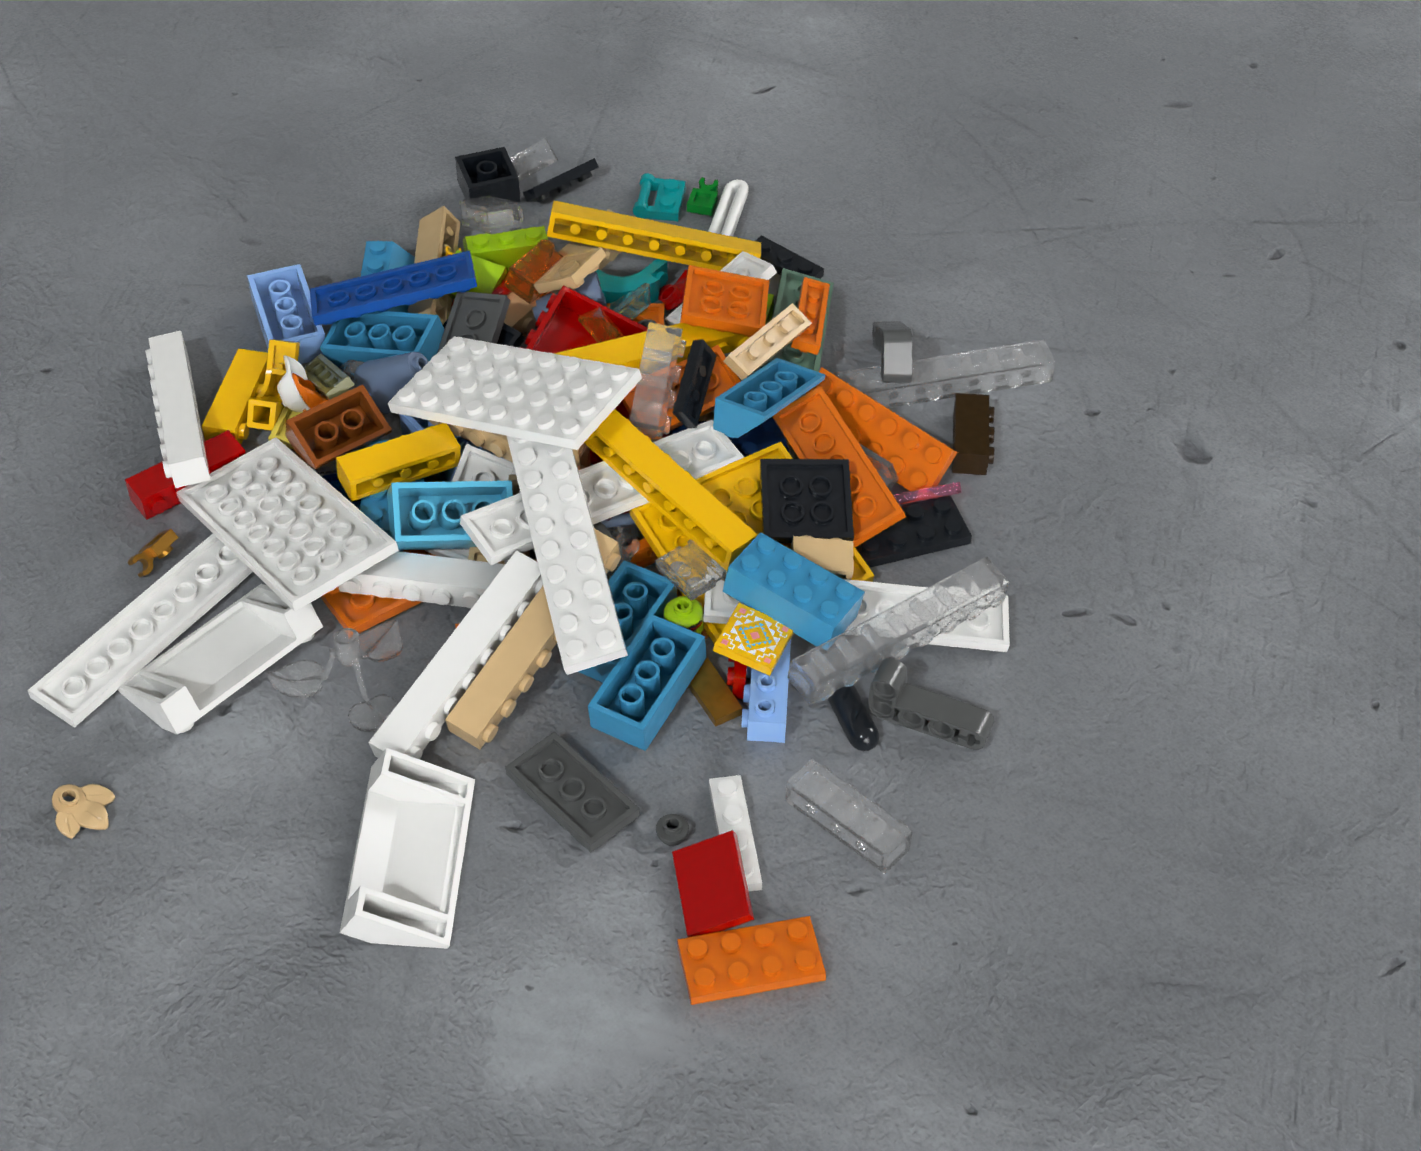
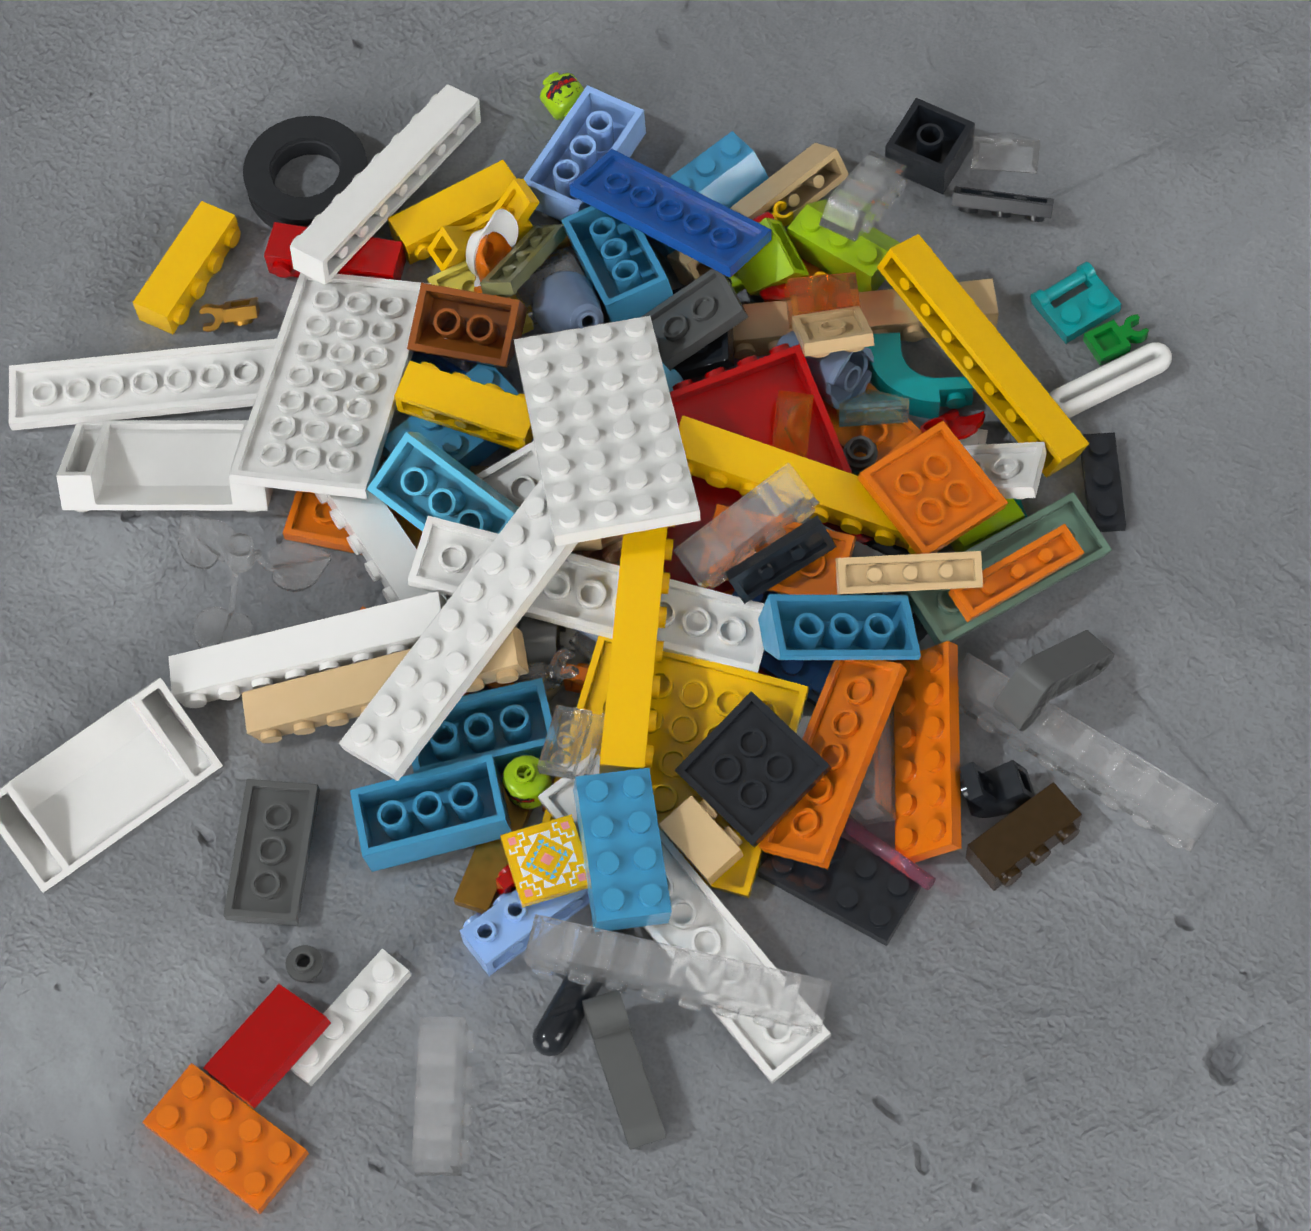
camera: 55 degrees right, 15 degrees up
(88, 550) = (187, 267): none -> yellow brick
(100, 422) = (291, 140): none -> black tyre
(230, 300) = (560, 94): none -> lime head
(932, 417) = (995, 790): none -> black brick

